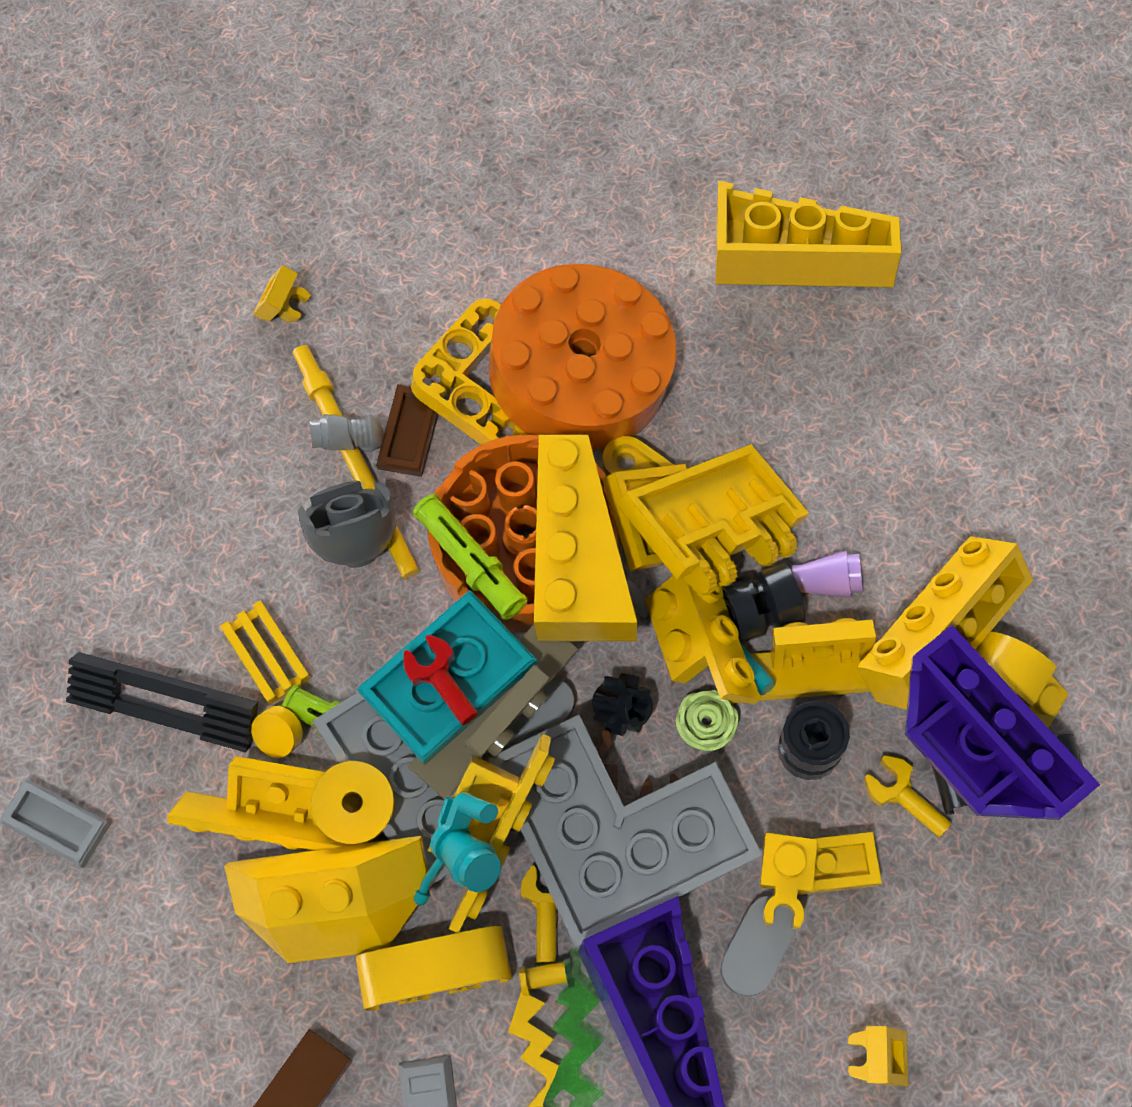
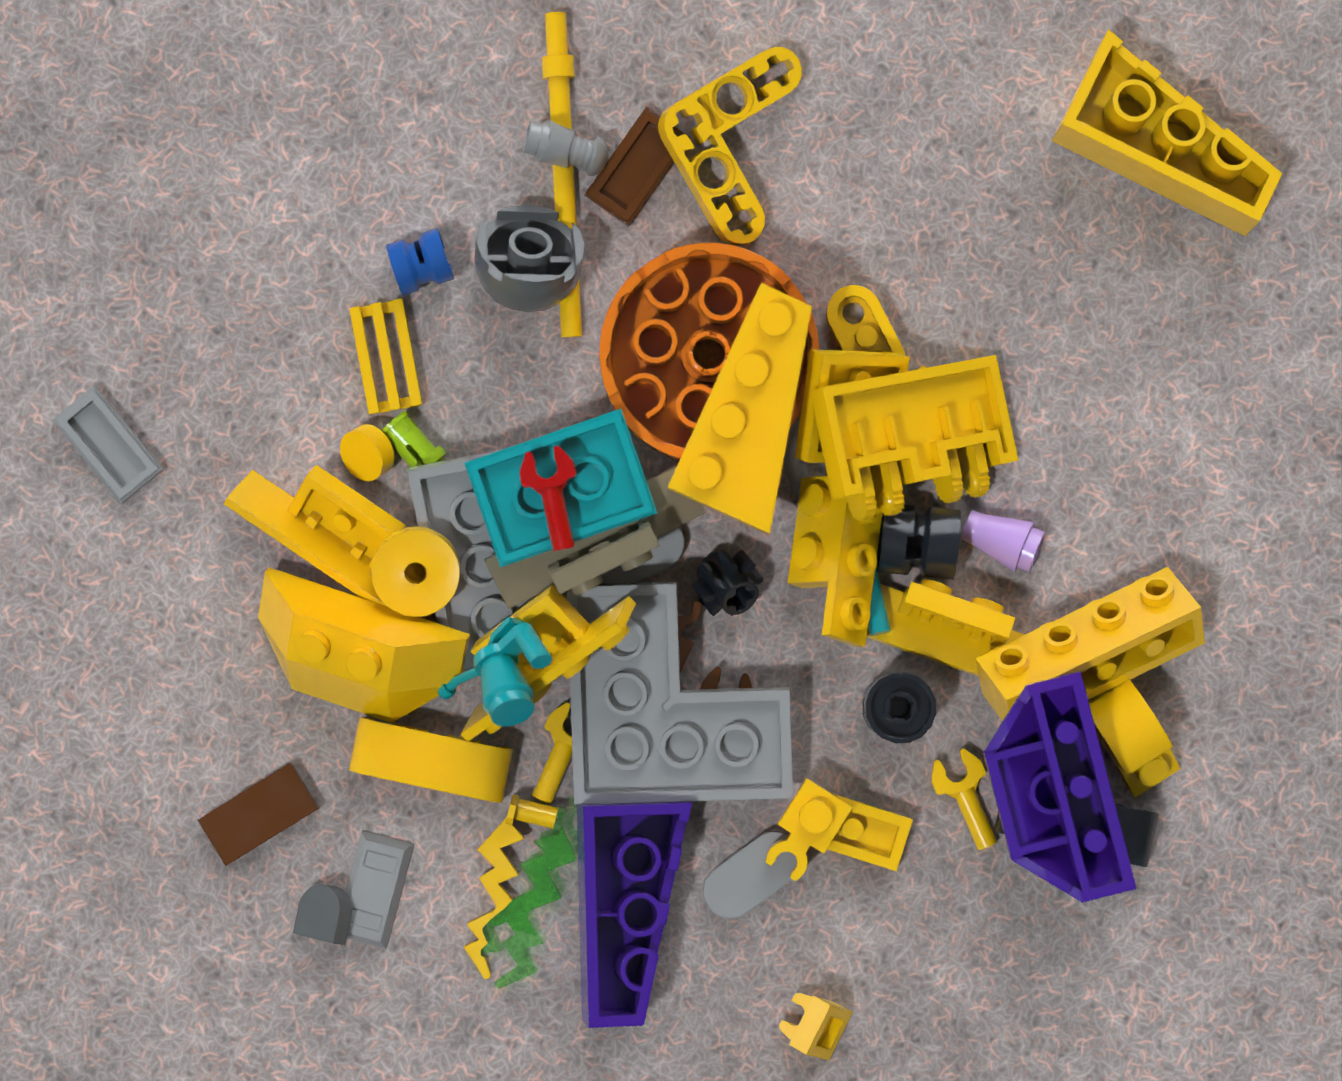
camera: 20 degrees right, 20 degrees up
(98, 687) = (199, 320): black container -> none
(264, 565) = (407, 264): none -> blue wheel
(482, 571) = (654, 435): lime pin -> none
(581, 354) = (900, 139): orange brick -> none
(706, 705) = (787, 638): yellowish green plate -> none

